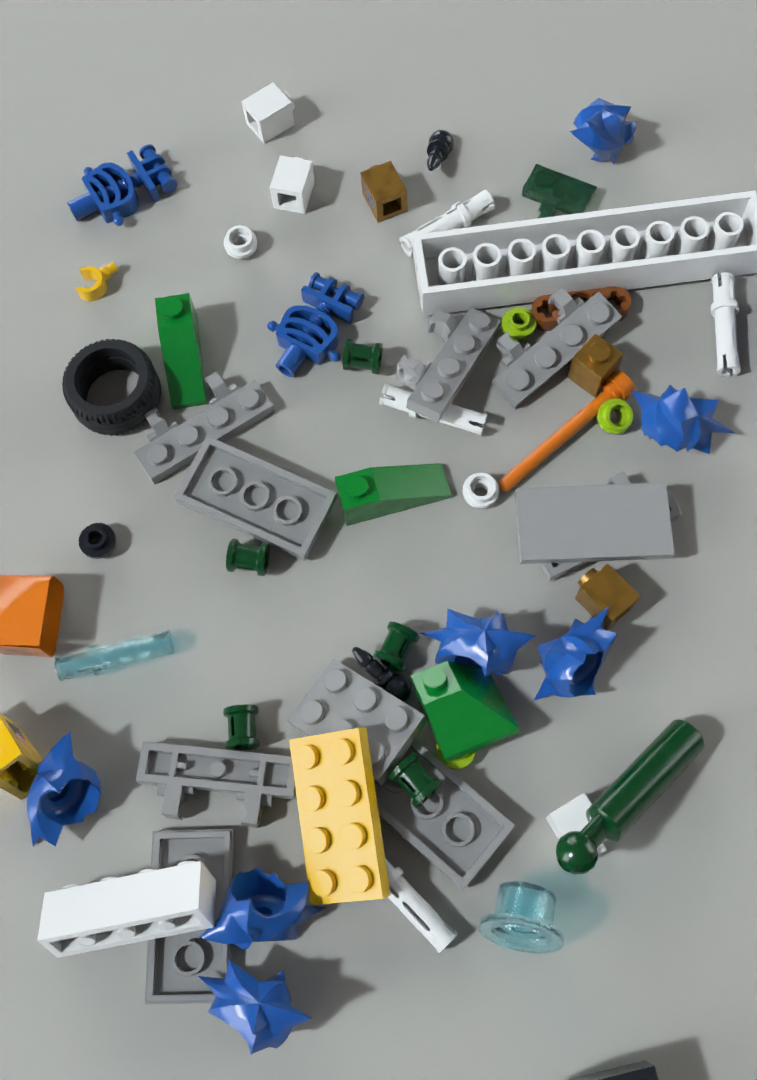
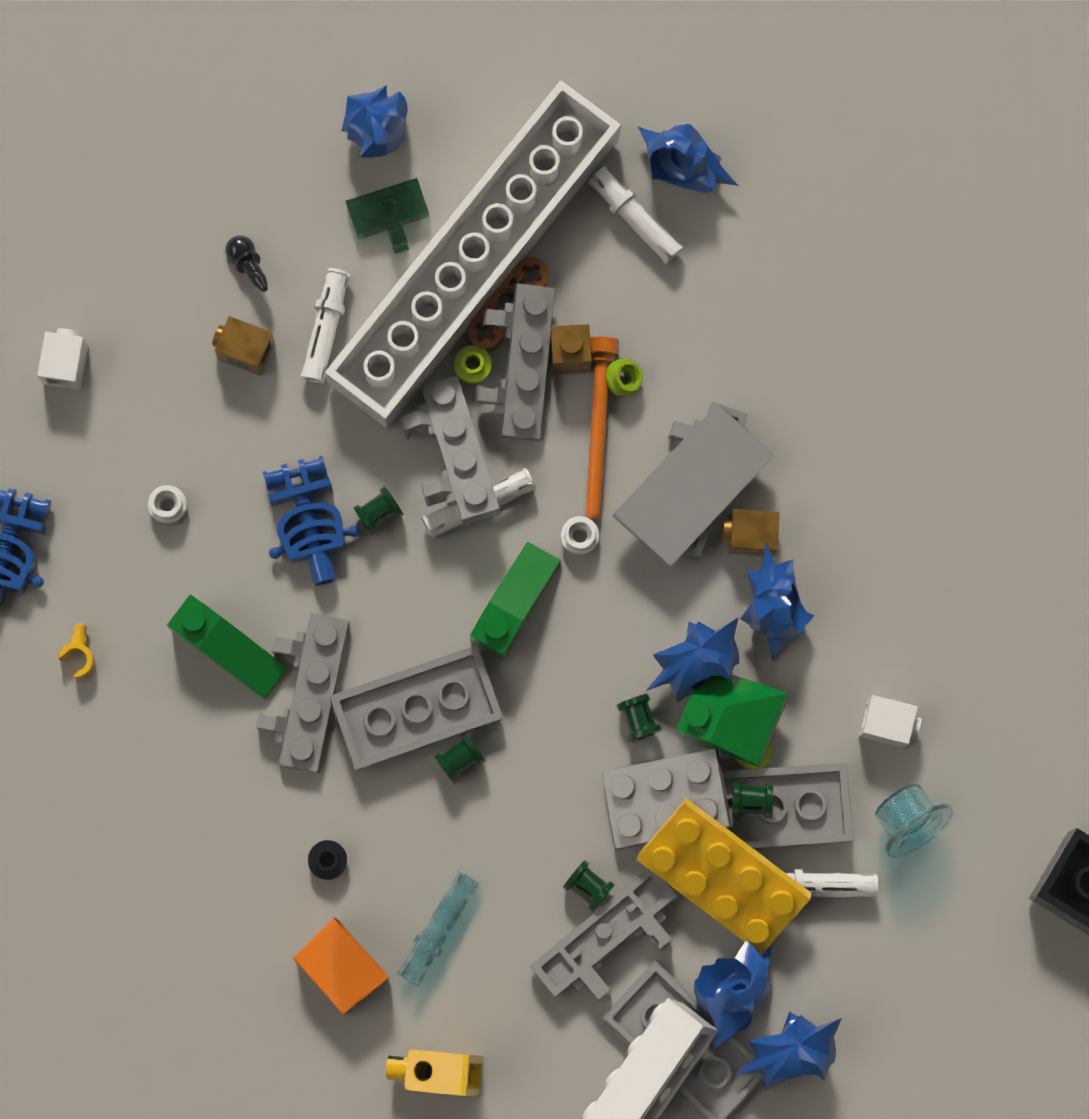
camera: 55 degrees left, 10 degrees up
(61, 792) = (512, 1058): blue hair -> none
(98, 360) = (171, 706): black tyre -> none
(292, 184) = (157, 409): white brick -> none
(386, 679) = (652, 749): black bar -> none
(630, 795) = (905, 664): dark green piece -> none
(679, 420) = (678, 340): blue hair -> none

